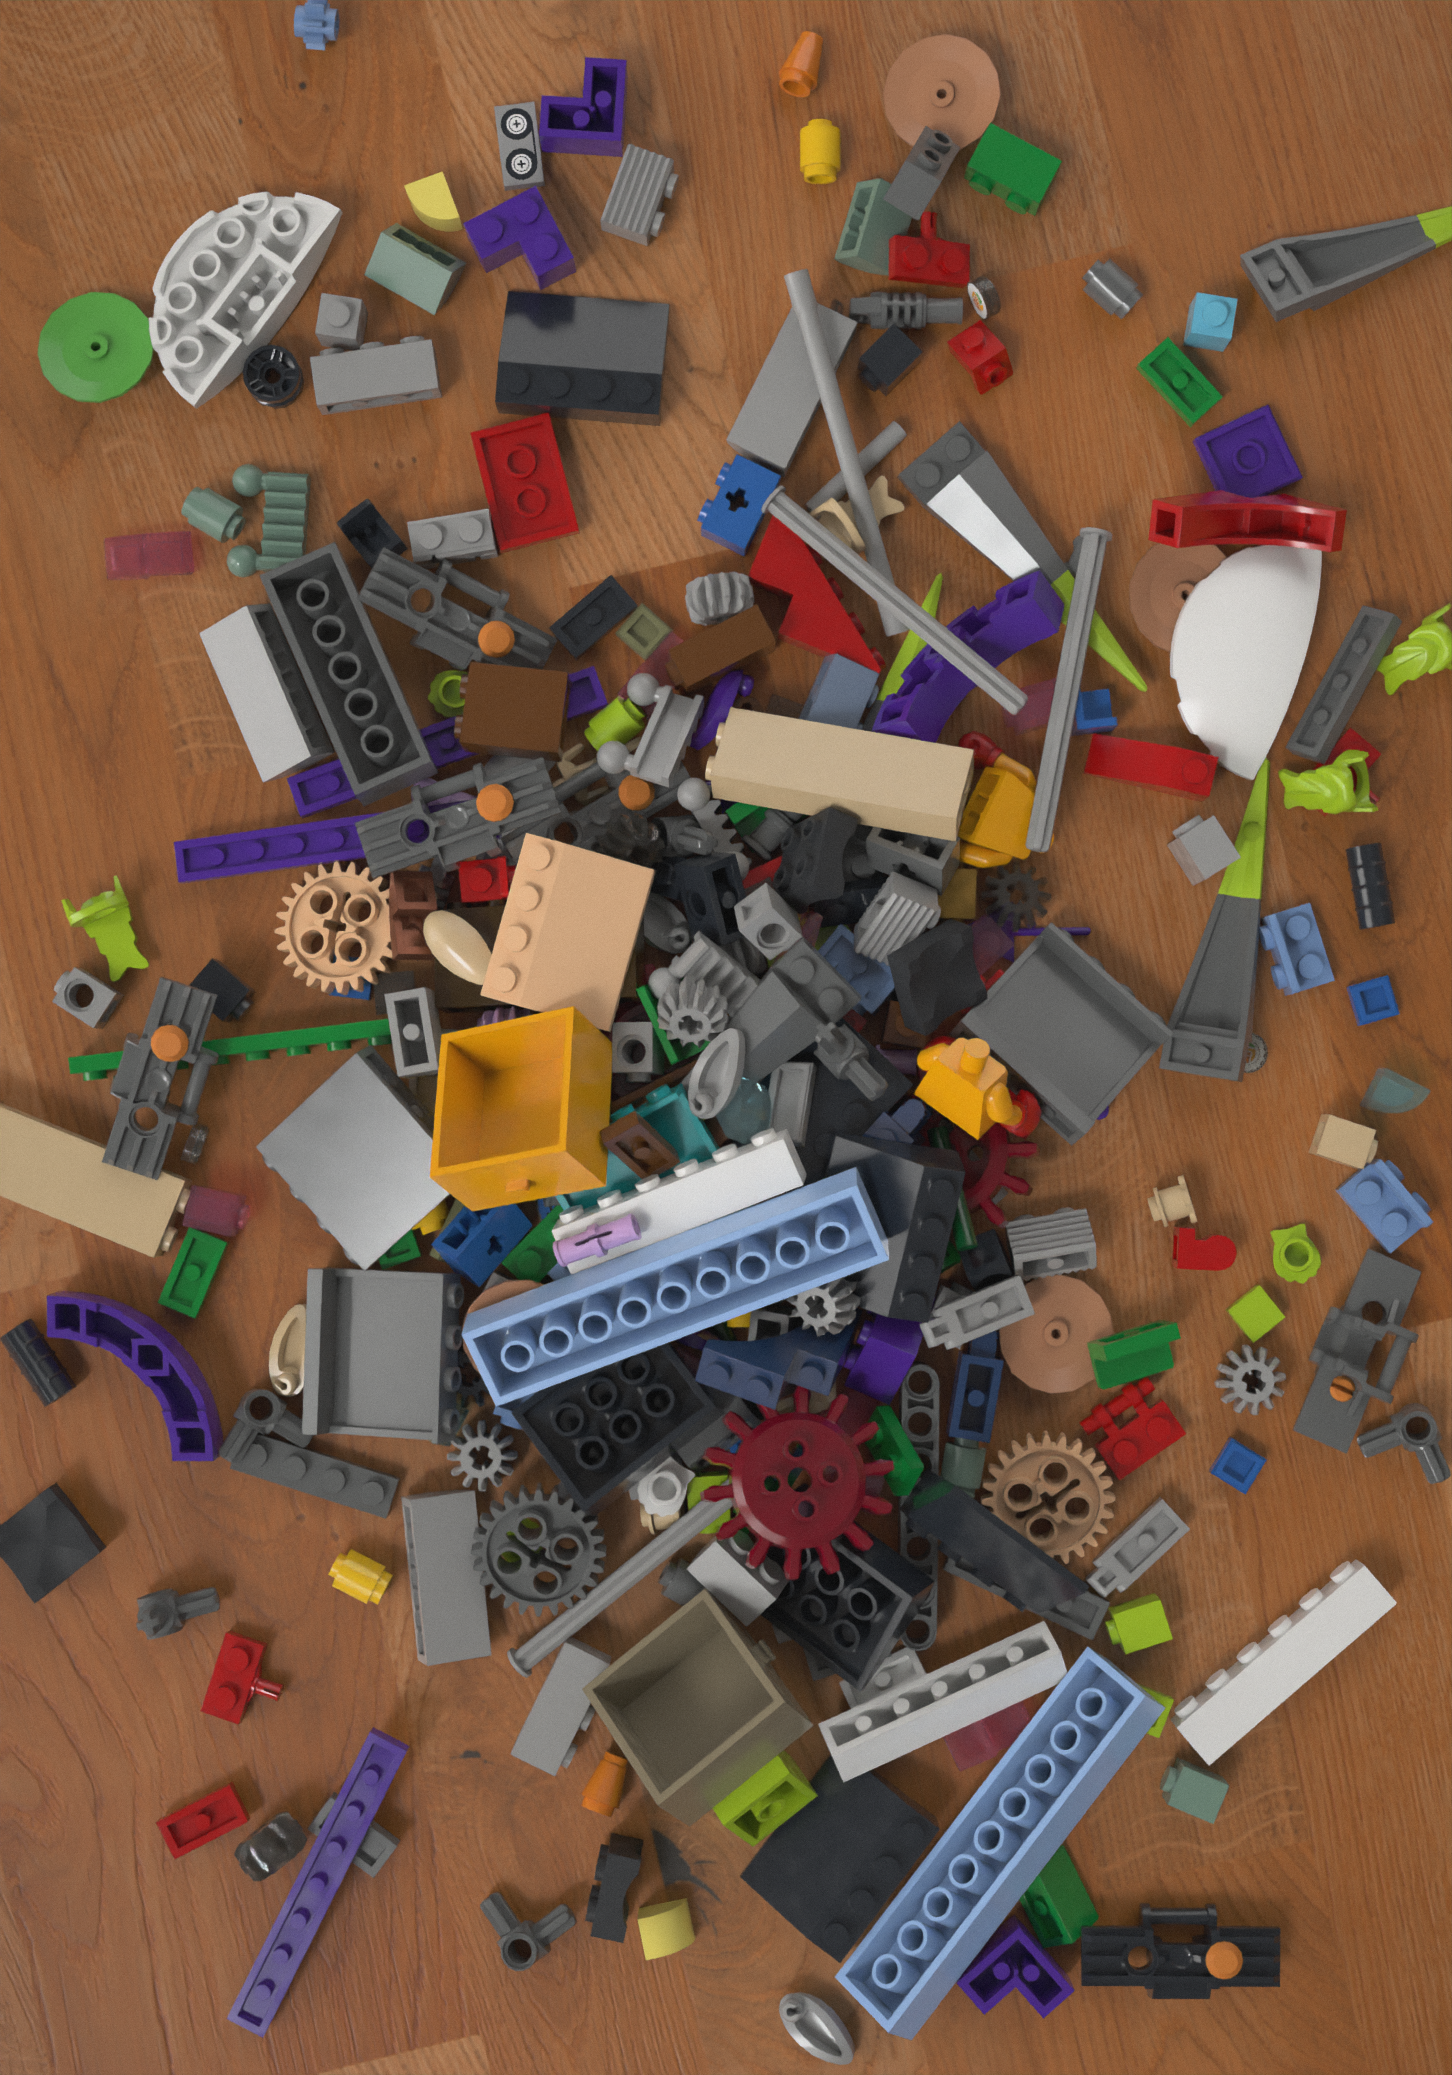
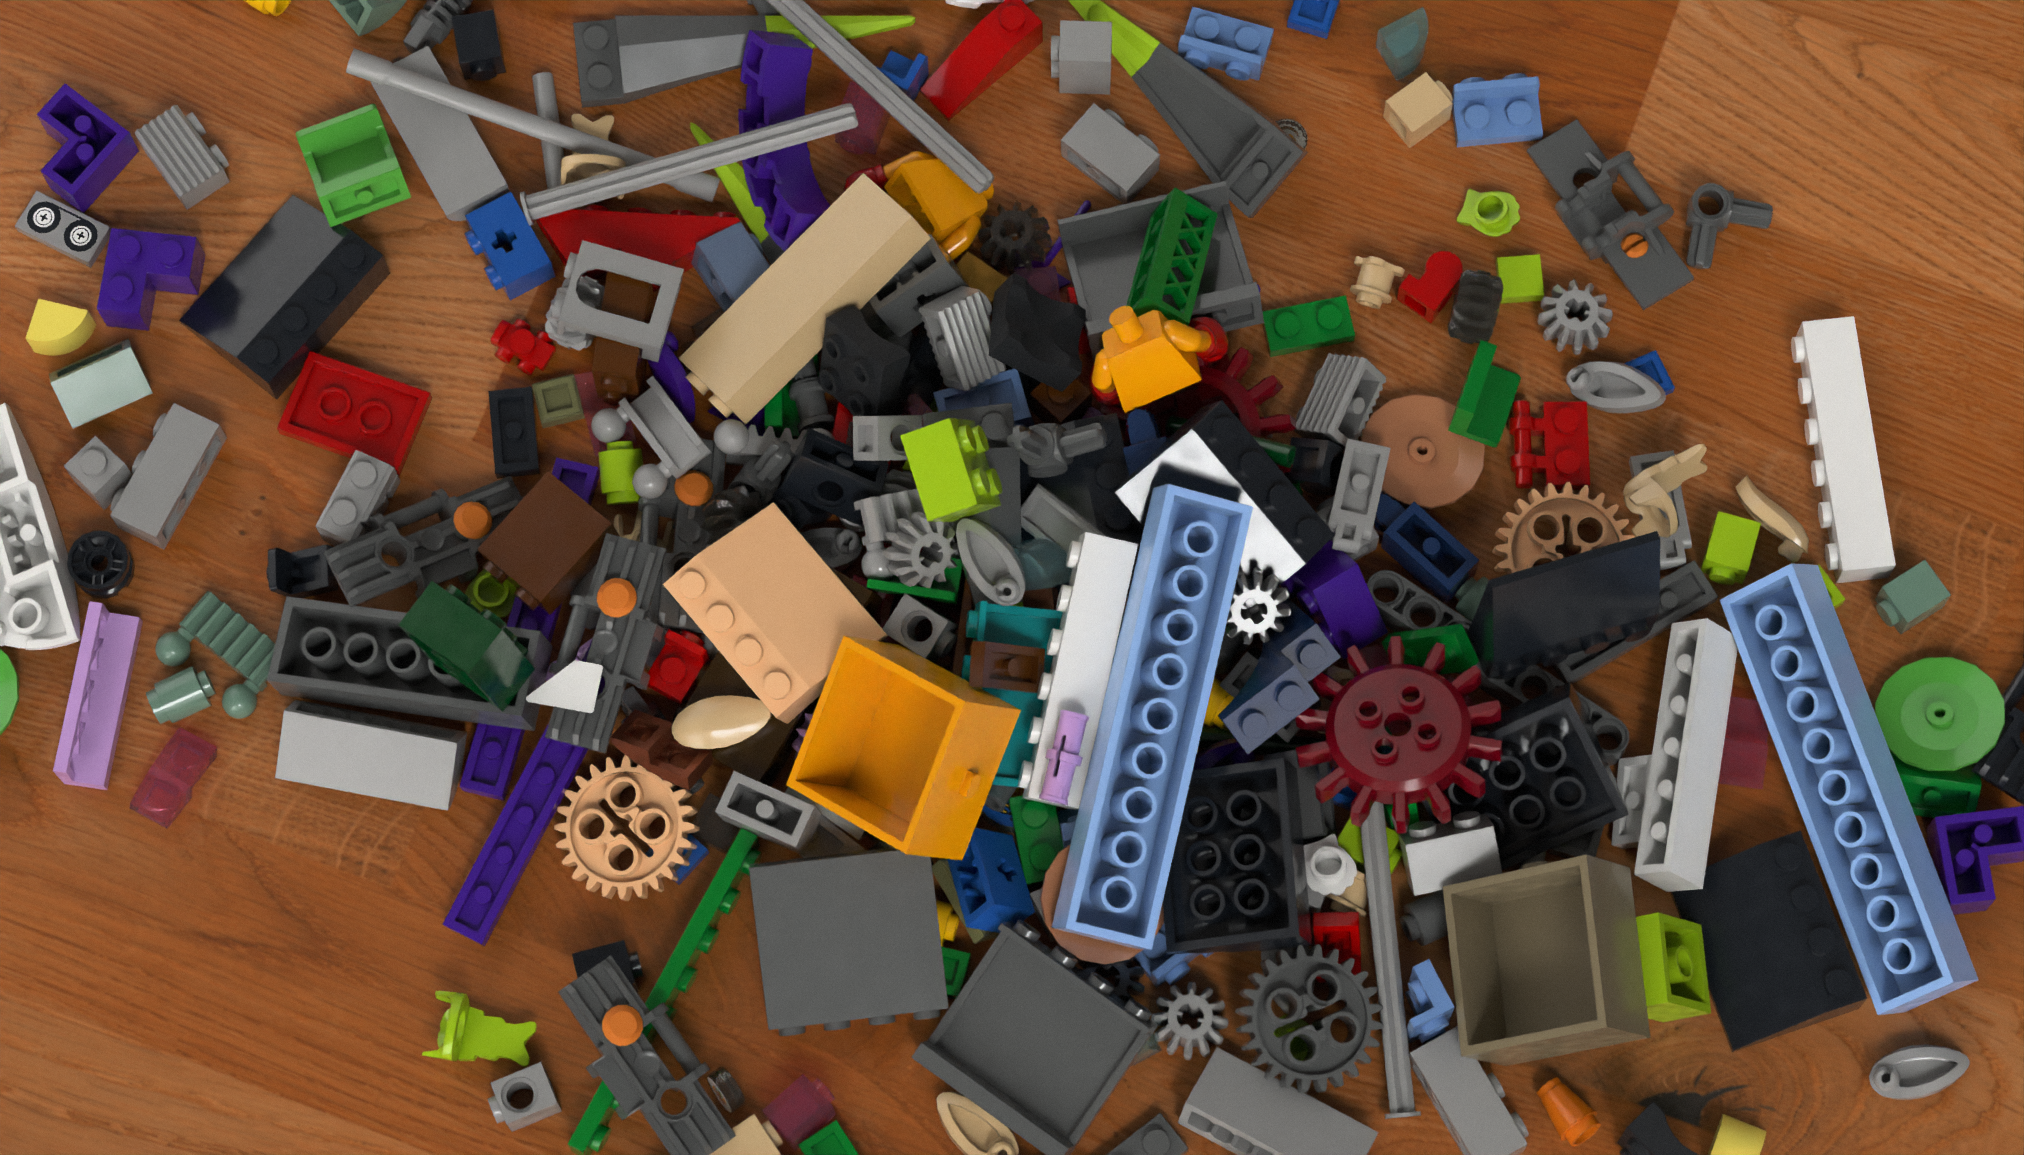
camera: 55 degrees left, 15 degrees down
(169, 452) = (97, 698): none -> lavender fence
(365, 721) = (468, 644): none -> dark green brick
(401, 817) = (571, 688): none -> white sticker
(616, 1627) = (1429, 1003): none -> medium blue bracket
(621, 1527) = (1339, 932): none -> red bracket
(668, 565) = (520, 342): none -> red piece
(701, 611) = (578, 316): none -> light grey panel
(719, 336) = (352, 165): none -> bright green panel
(760, 1000) = (952, 469): none -> lime brick
(1067, 1030) = (1162, 251): none -> green fence
(1102, 1173) = (1308, 326): none -> green plate
(1111, 1873) = (1940, 713): none -> bright green piece
(1128, 1542) = (1650, 487): none -> tan hair
(1139, 923) = (1111, 153): none -> light grey brick
(1186, 1643) = (1774, 519): none -> tan arm
(1203, 1298) = (1475, 306): none -> clear smoke gear
(1212, 1448) = (1614, 387): none -> light grey arm

